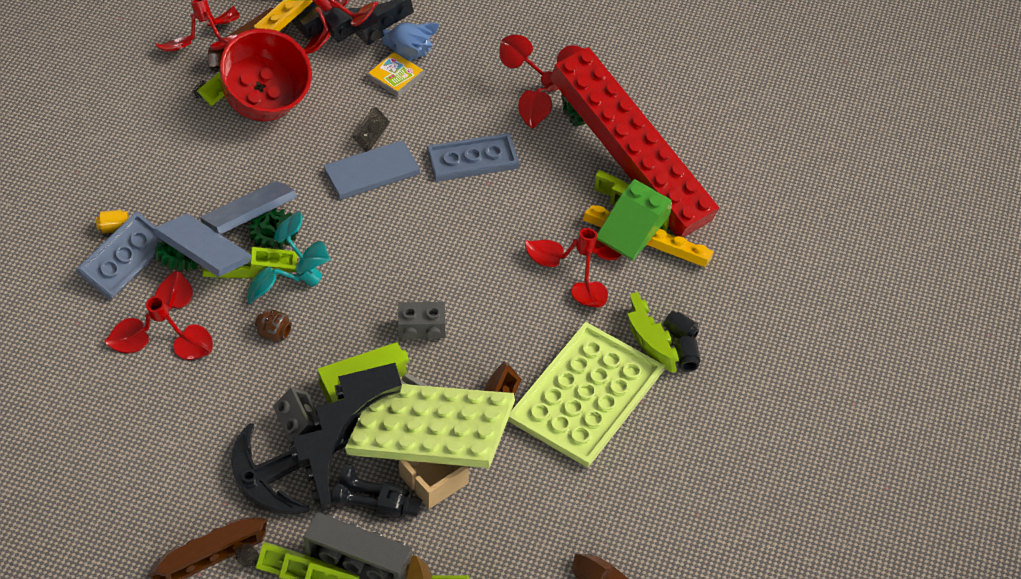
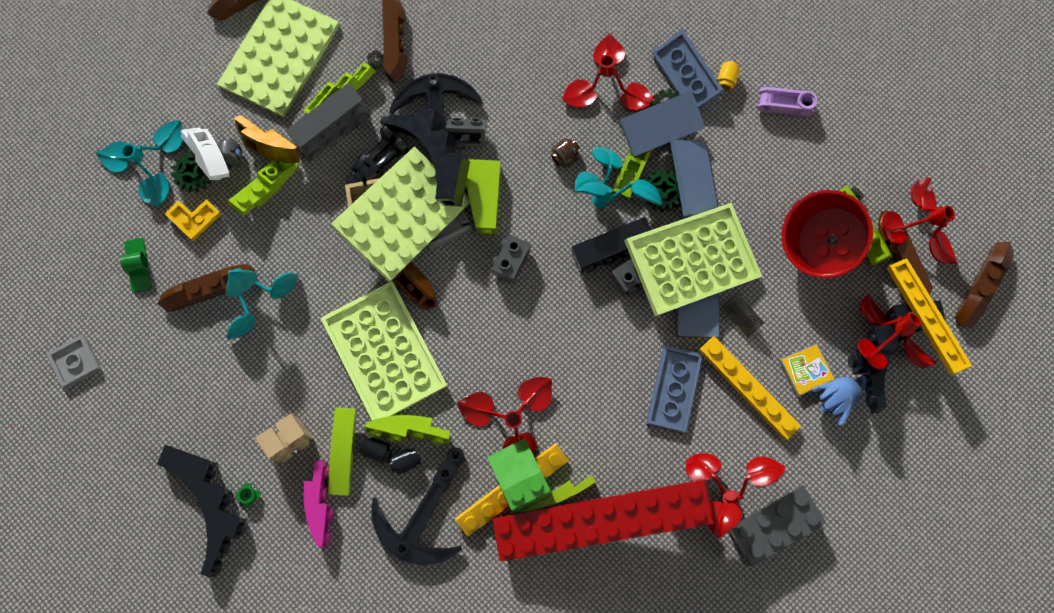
camera: 125 degrees right, 25 degrees up
(119, 155) = (786, 101): none -> lavender piece
(339, 172) = (692, 259): none -> yellowish green plate
(358, 244) = (607, 246): none -> black brick
(377, 218) = (628, 272): none -> dark grey brick
(438, 105) = (749, 388): none -> yellow plate
(547, 39) = (777, 525): none -> dark grey brick
(600, 540) = (240, 282): none -> teal plant
(704, 381) = (342, 451): none -> lime slope
(729, 416) = (291, 436): none -> tan piece
(756, 292) = (409, 537): none -> black piece
(778, 377) = (317, 513): none -> dark pink slope
(811, 441) = (248, 501): none -> green plate
(832, 470) = (212, 498): none -> black arch

